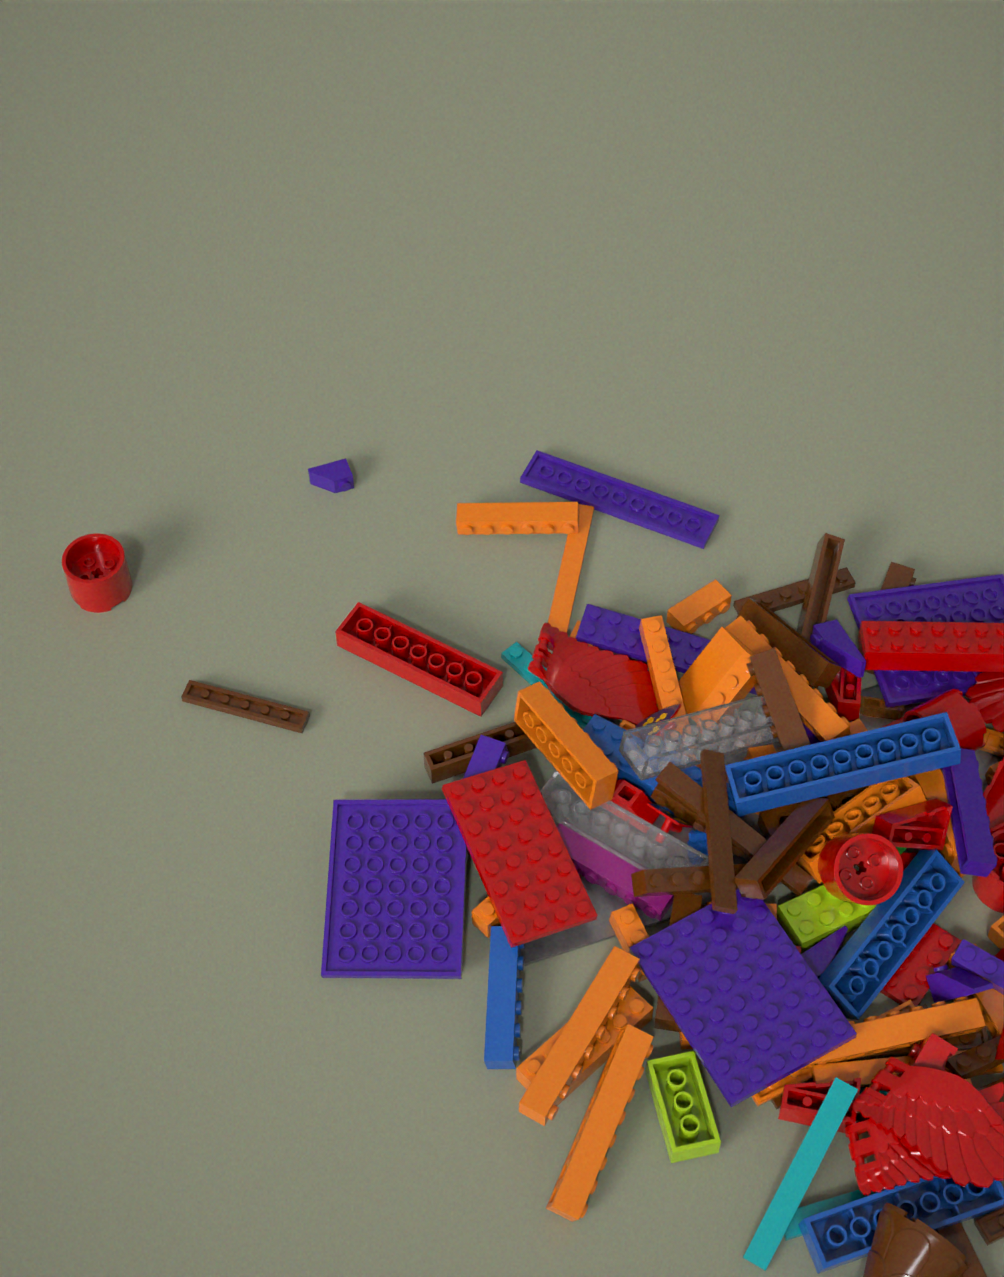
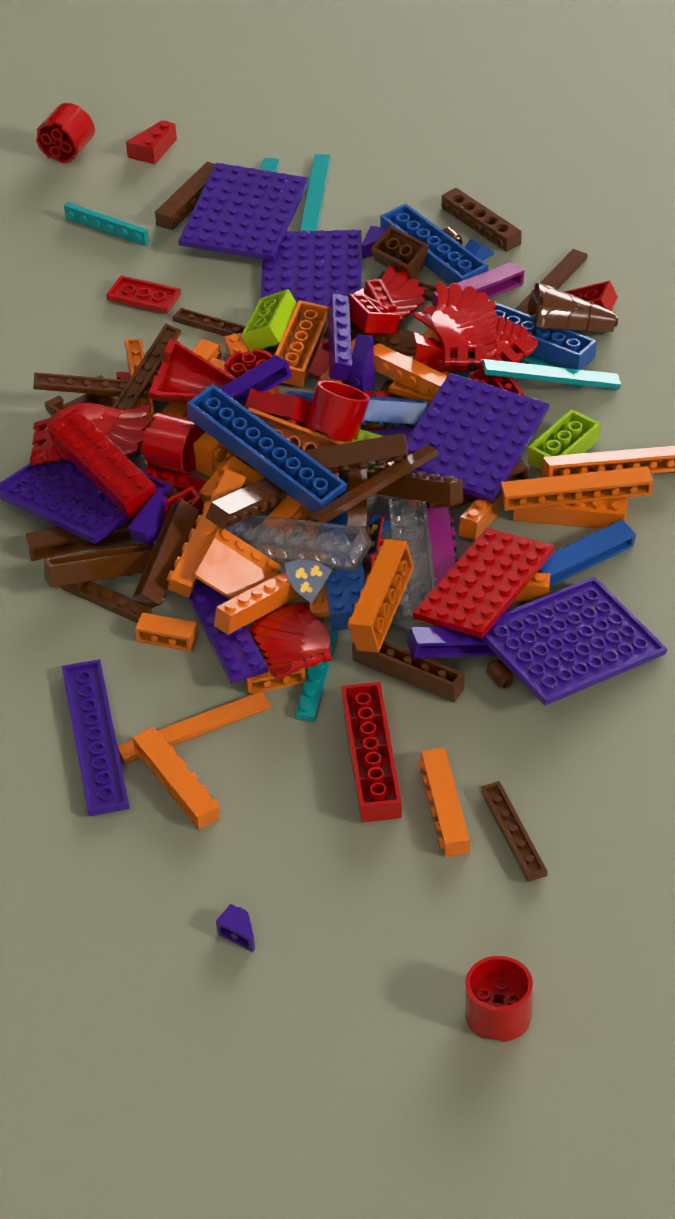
camera: 125 degrees left, 10 degrees down
(320, 679) = (445, 802): none -> orange brick

